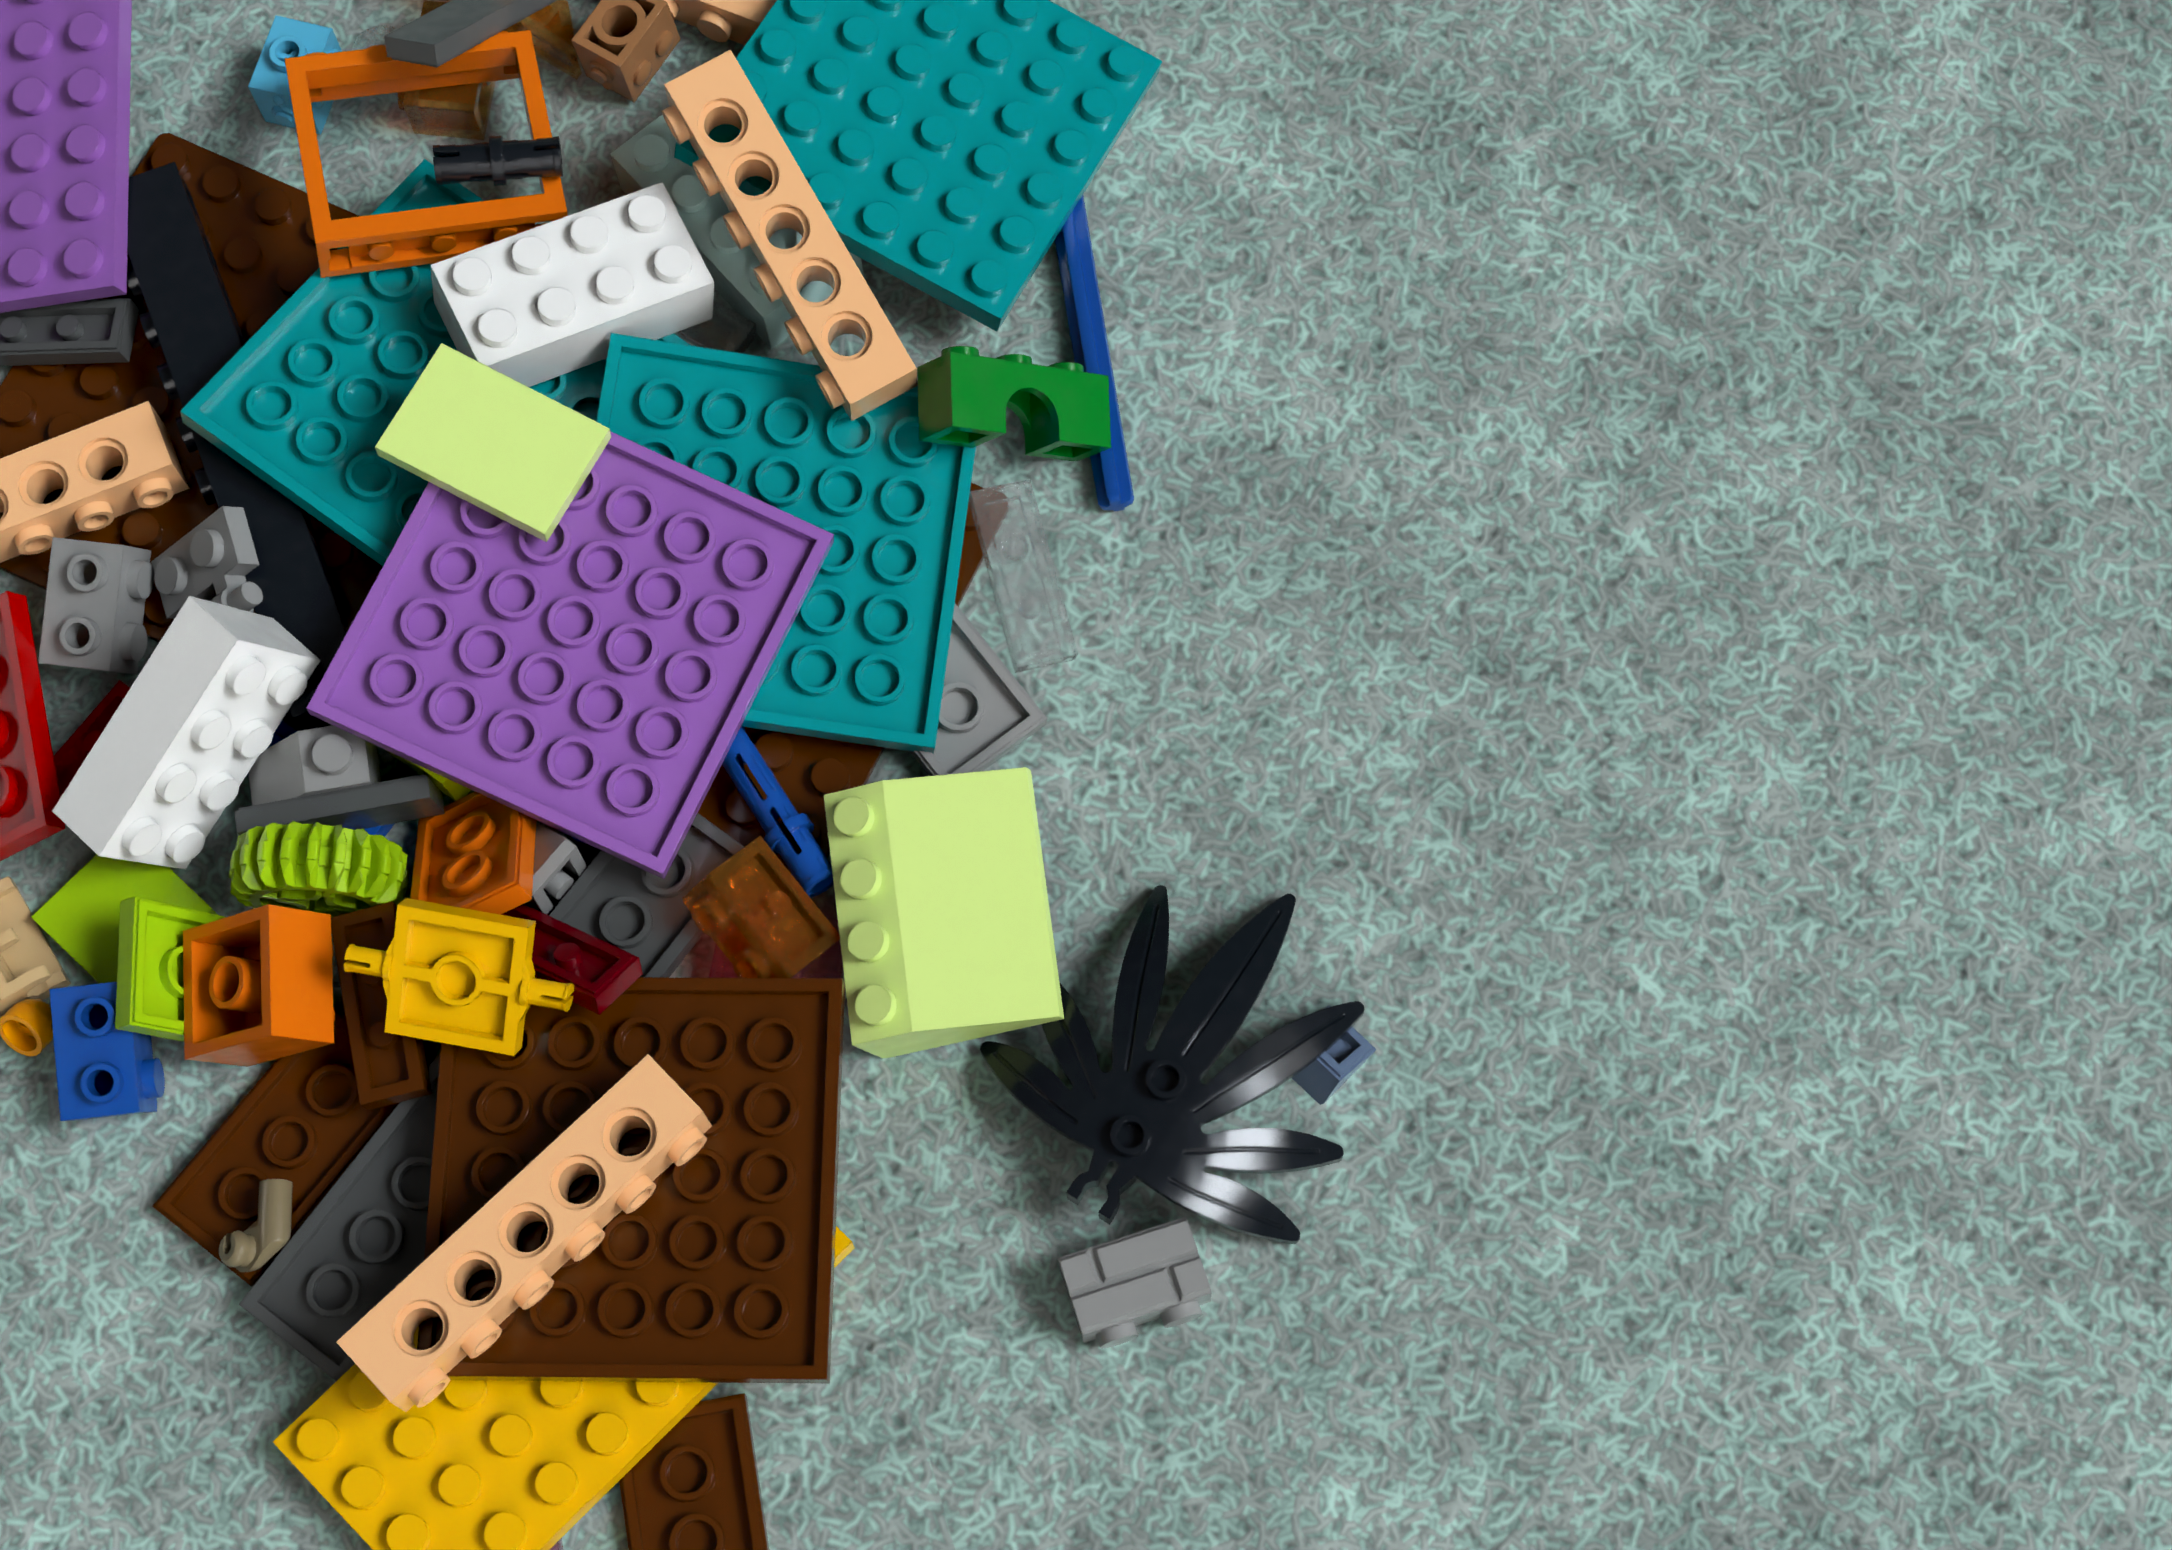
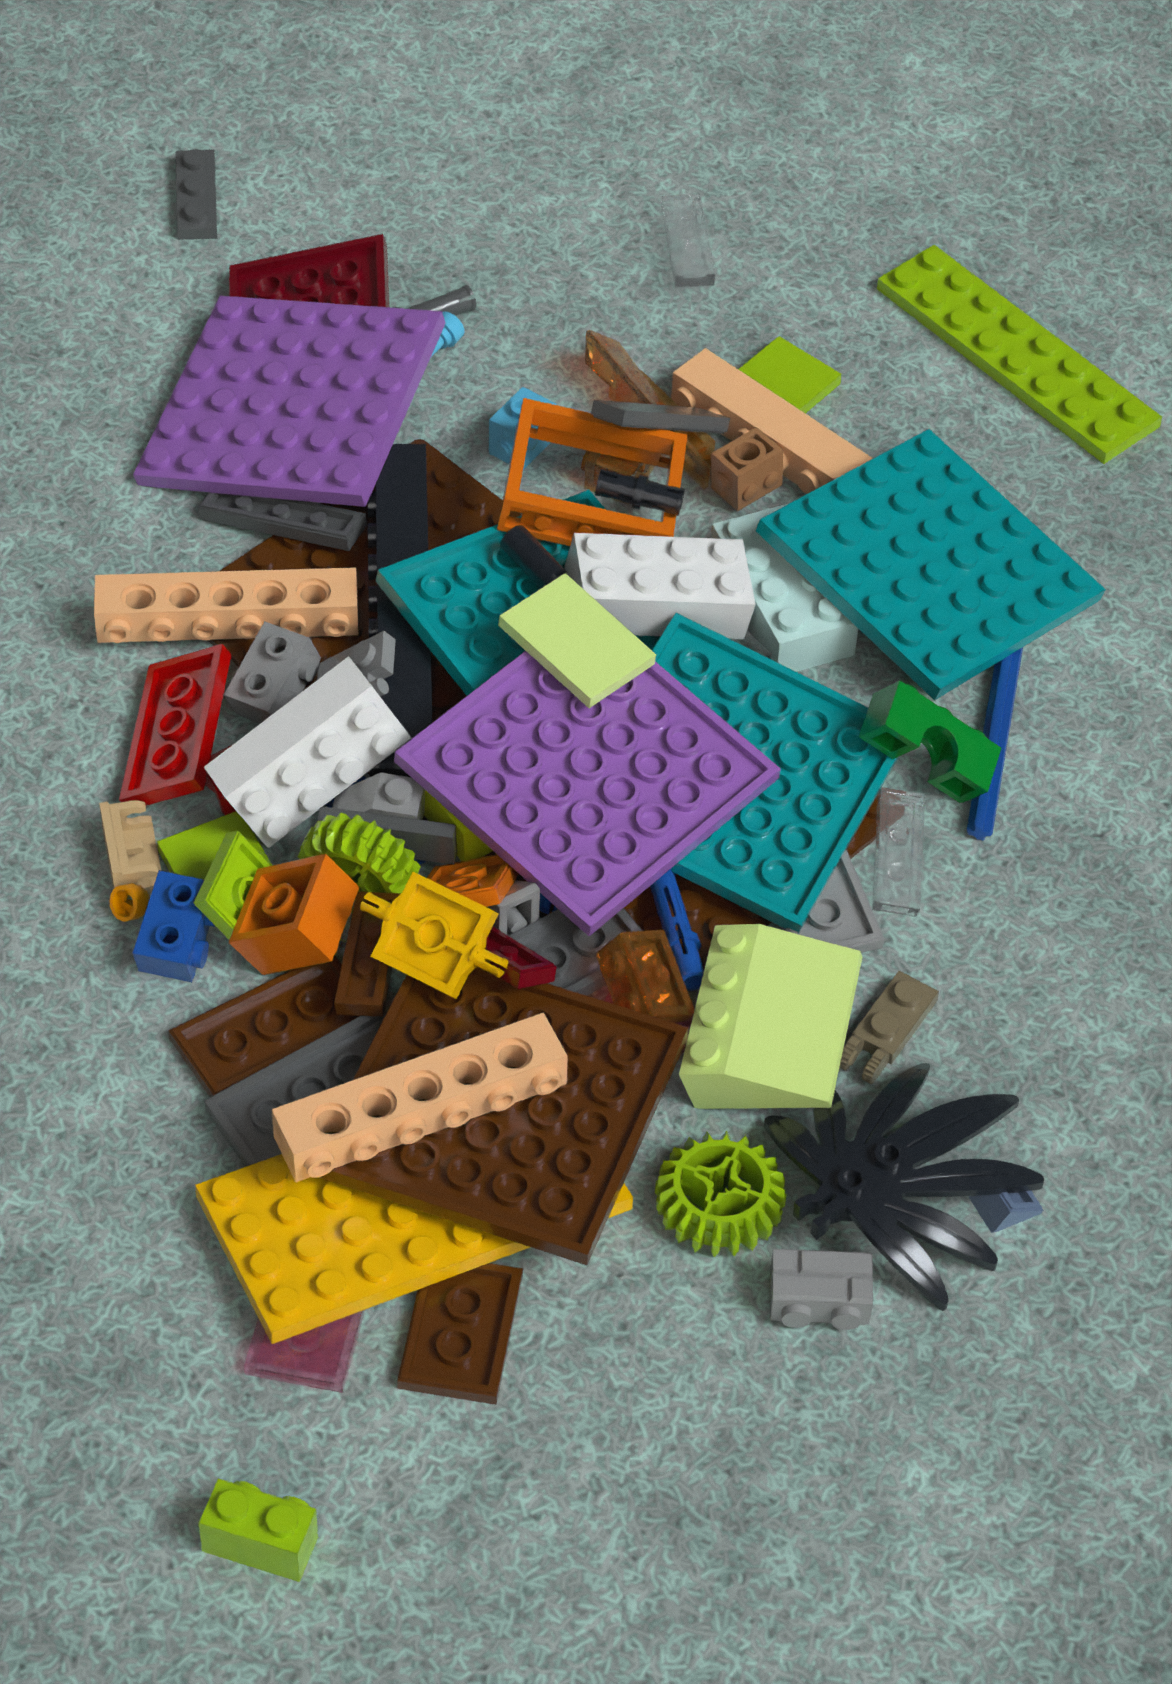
camera: 15 degrees right, 20 degrees down
(267, 1235) = (227, 1070): dark tan arm -> none
(391, 314) = (531, 556): none -> black cylinder
(723, 95) = (802, 494): light nougat brick -> none
(990, 1192) = (736, 1214): none -> lime gear
(1094, 841) = (889, 1024): none -> dark tan hinge

